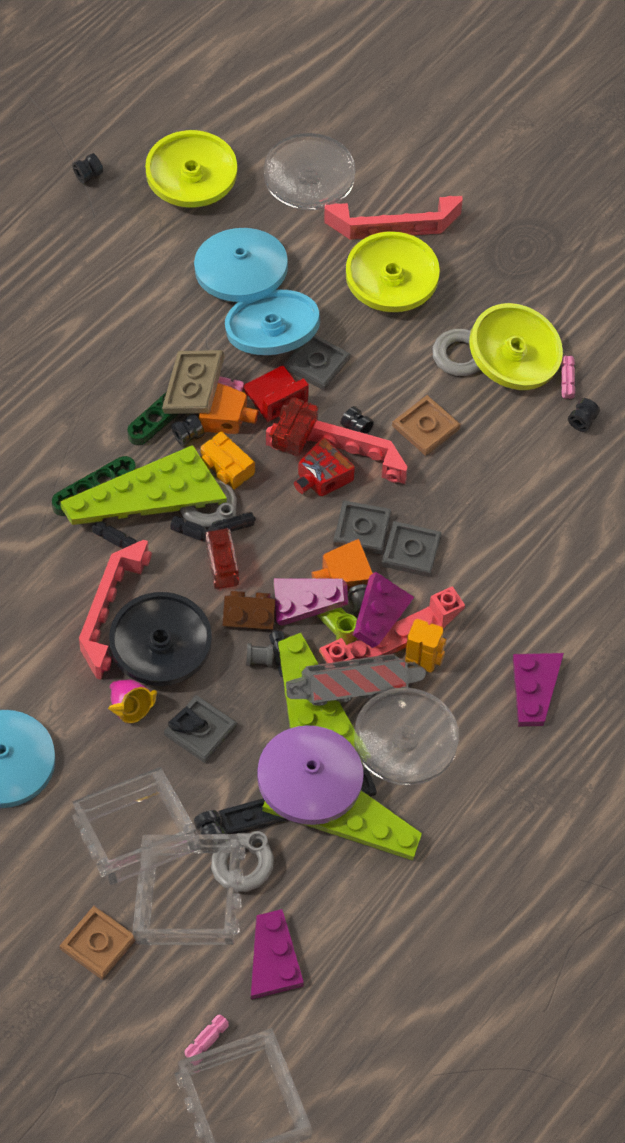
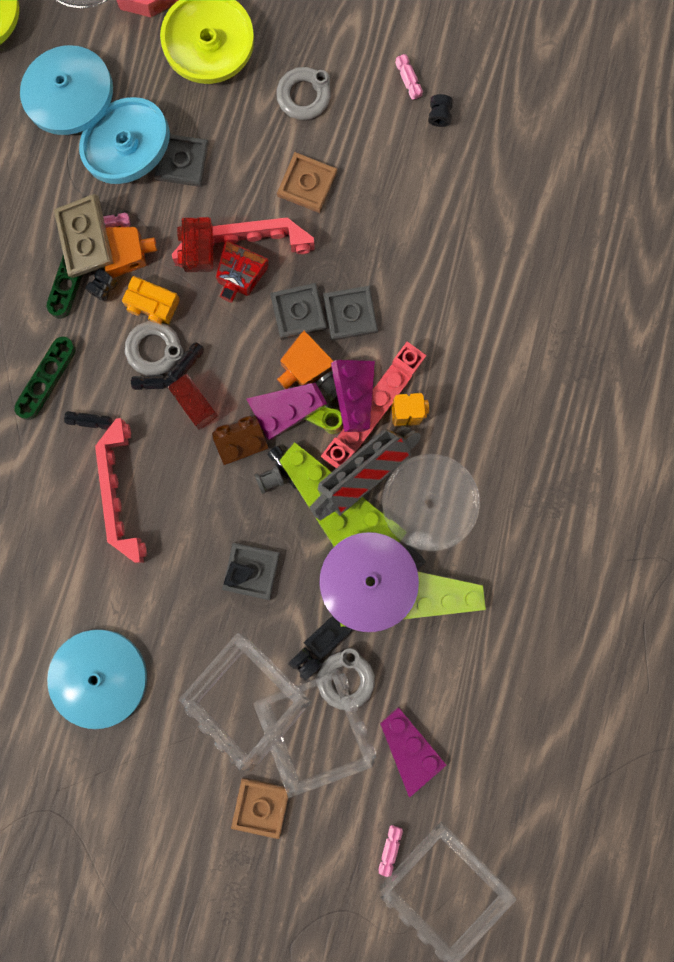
camera: 25 degrees left, 25 degrees up
(131, 696) = (179, 576): yellow hat -> none
(151, 489) = (101, 359): lime wing -> none
(160, 638) = (155, 502): black dish -> none
(274, 390) = (161, 210): red bracket -> none
(356, 421) = (246, 209): black wheel -> none
(516, 346) = (352, 67): neon yellow dish -> none
(534, 685) = (512, 398): magenta wing -> none

